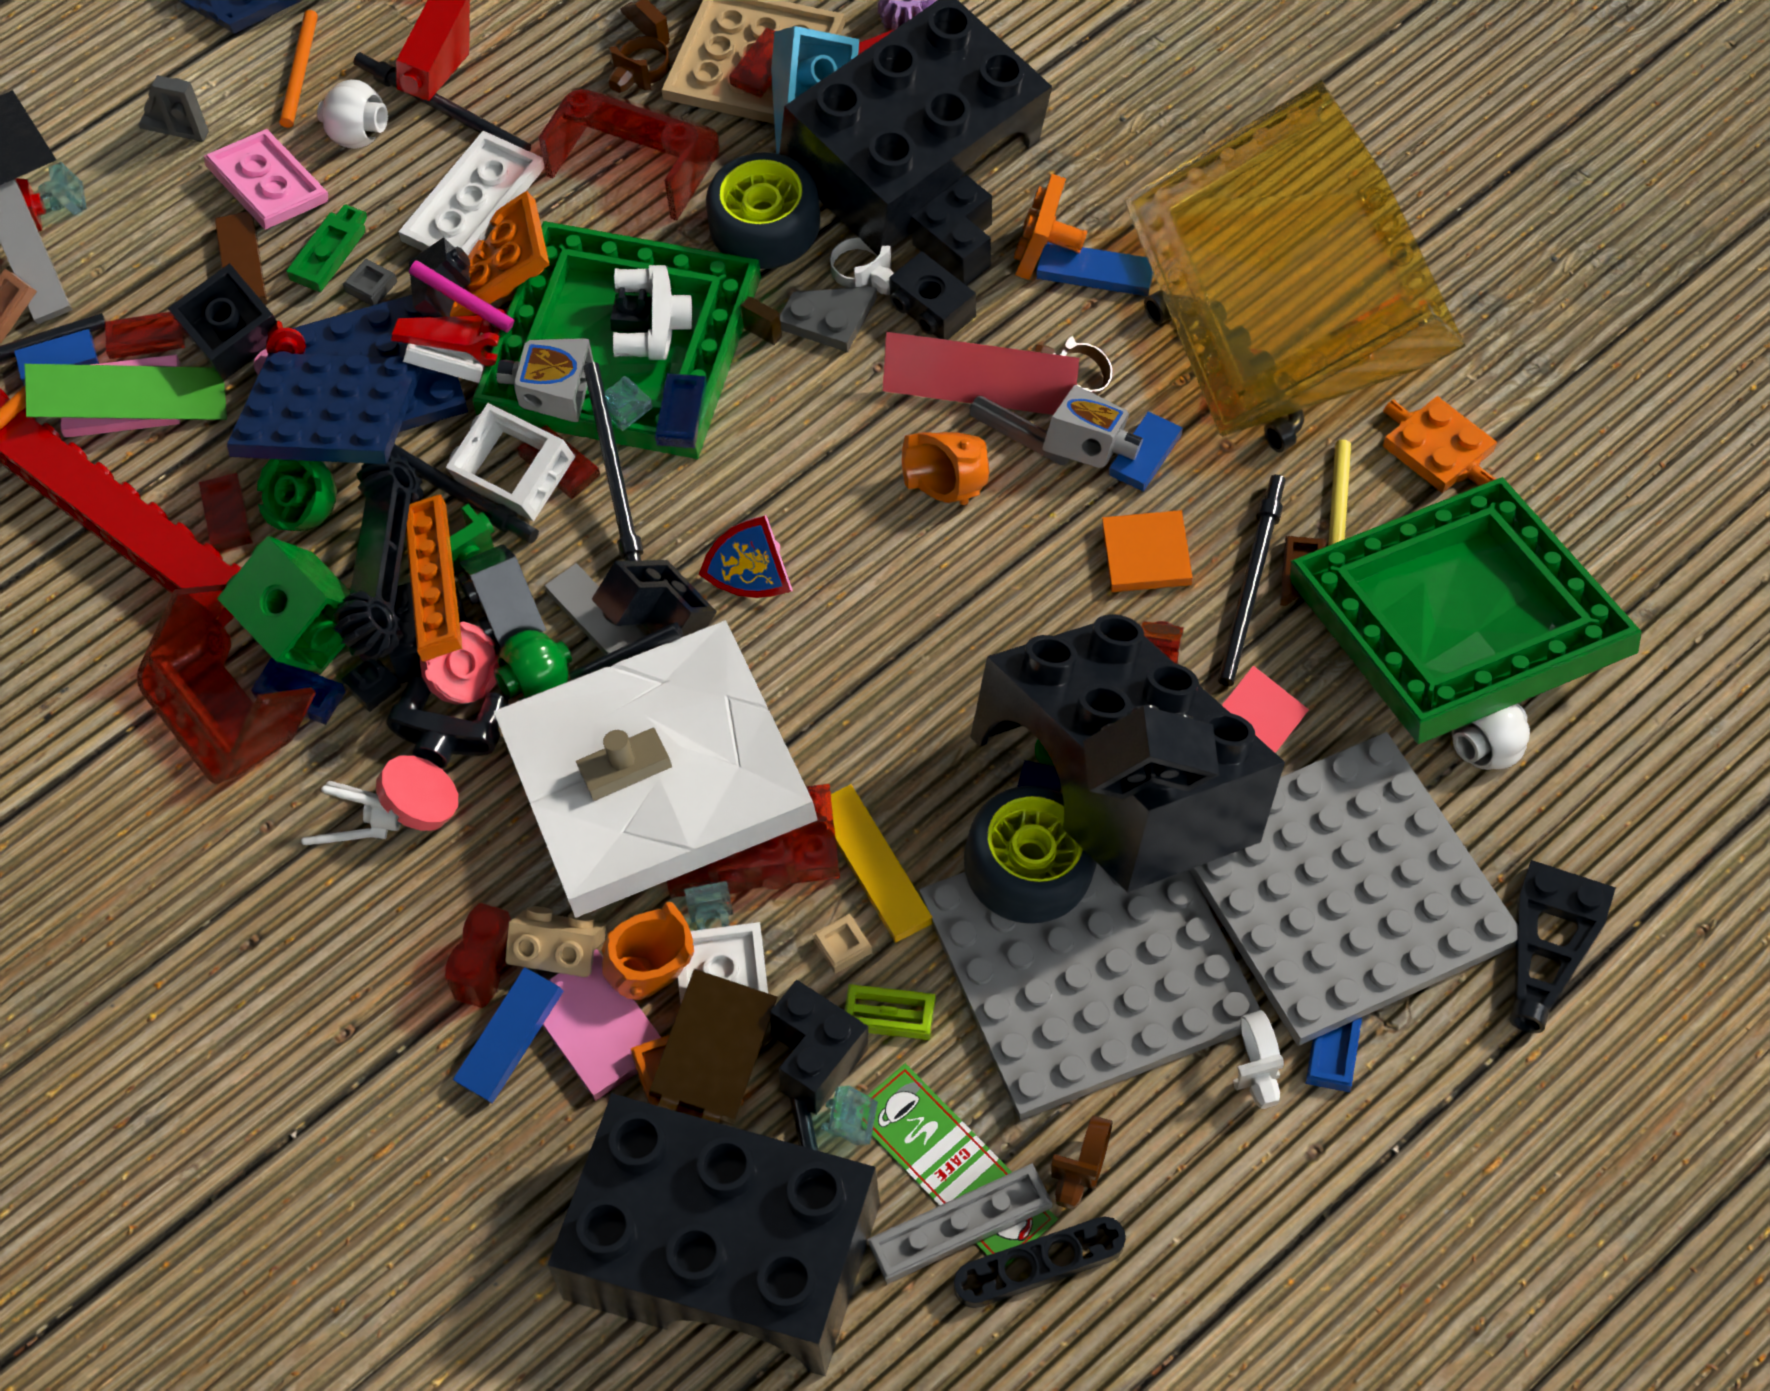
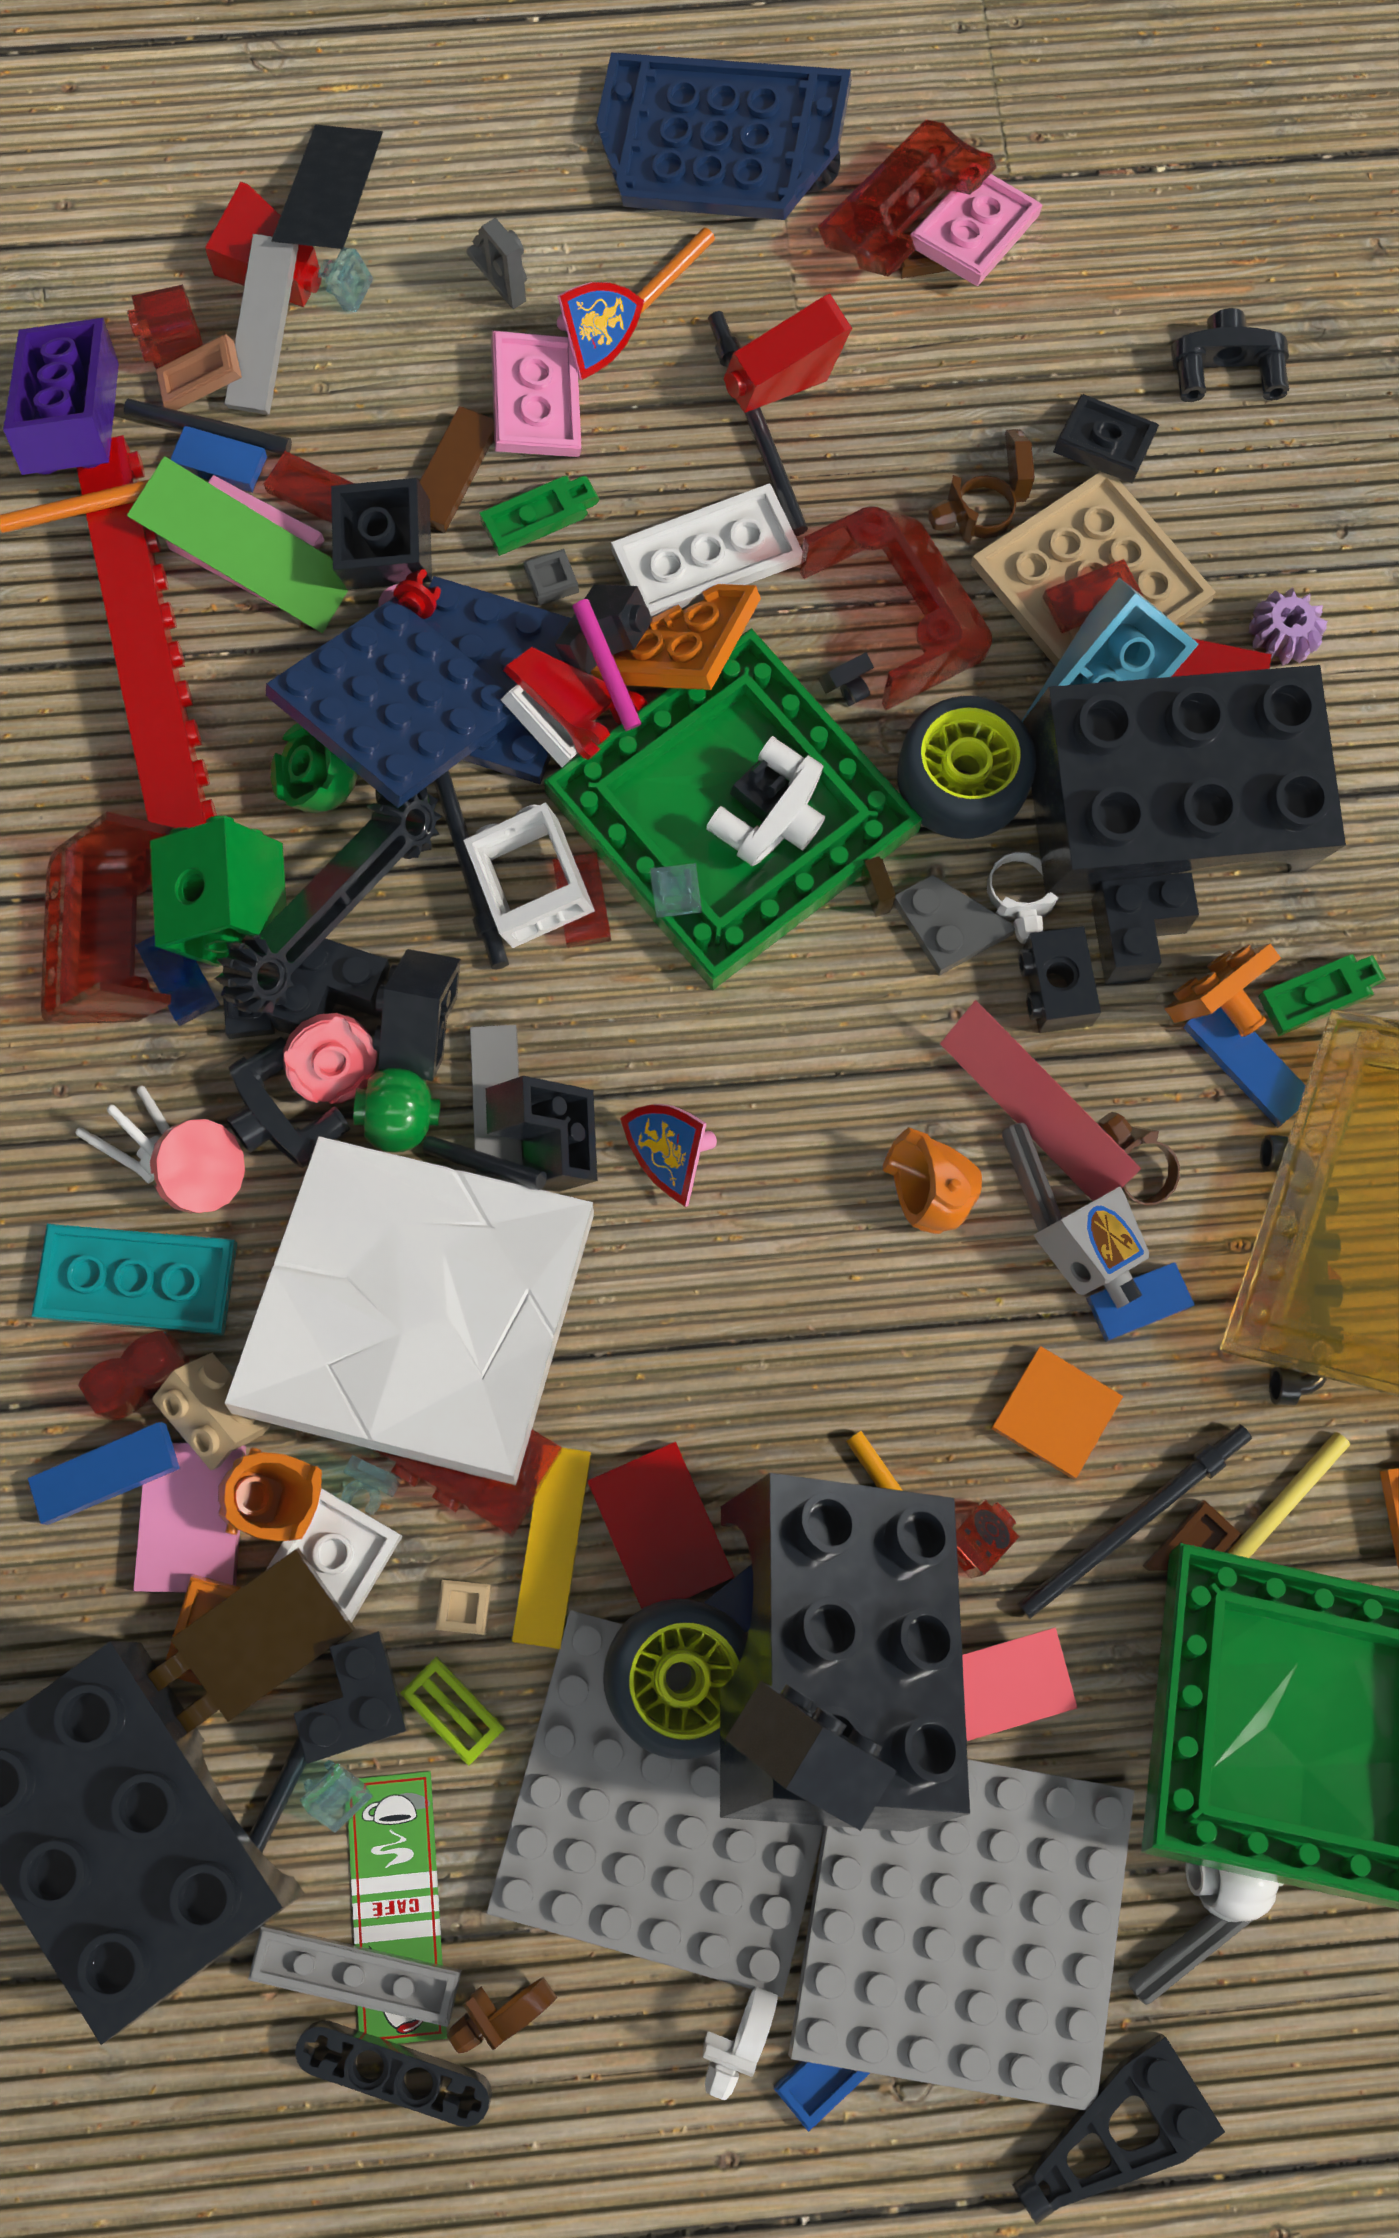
camera: 30 degrees right, 15 degrees up
(225, 512) = (248, 736): clear red tile -> none
(278, 105) = (598, 323): none -> shield
(350, 111) = (665, 373): white plant -> none
(424, 904) = (135, 1279): none -> teal tile
(432, 579) = (354, 962): orange tile -> none
(472, 539) = (436, 933): green bracket -> none
(550, 376) = (626, 813): light grey torso -> none
(623, 762) = (379, 1294): dark tan tile -> none
(629, 544) = (577, 1042): black bar -> none
(637, 212) = (849, 679): none -> black tile
(681, 410) = (723, 937): clear blue tile -> none
(931, 796) = (660, 1527): none -> red tile
(1105, 200) = (1319, 991): none -> green hinge
(1502, 807) = (1182, 1957): none -> dark grey axle

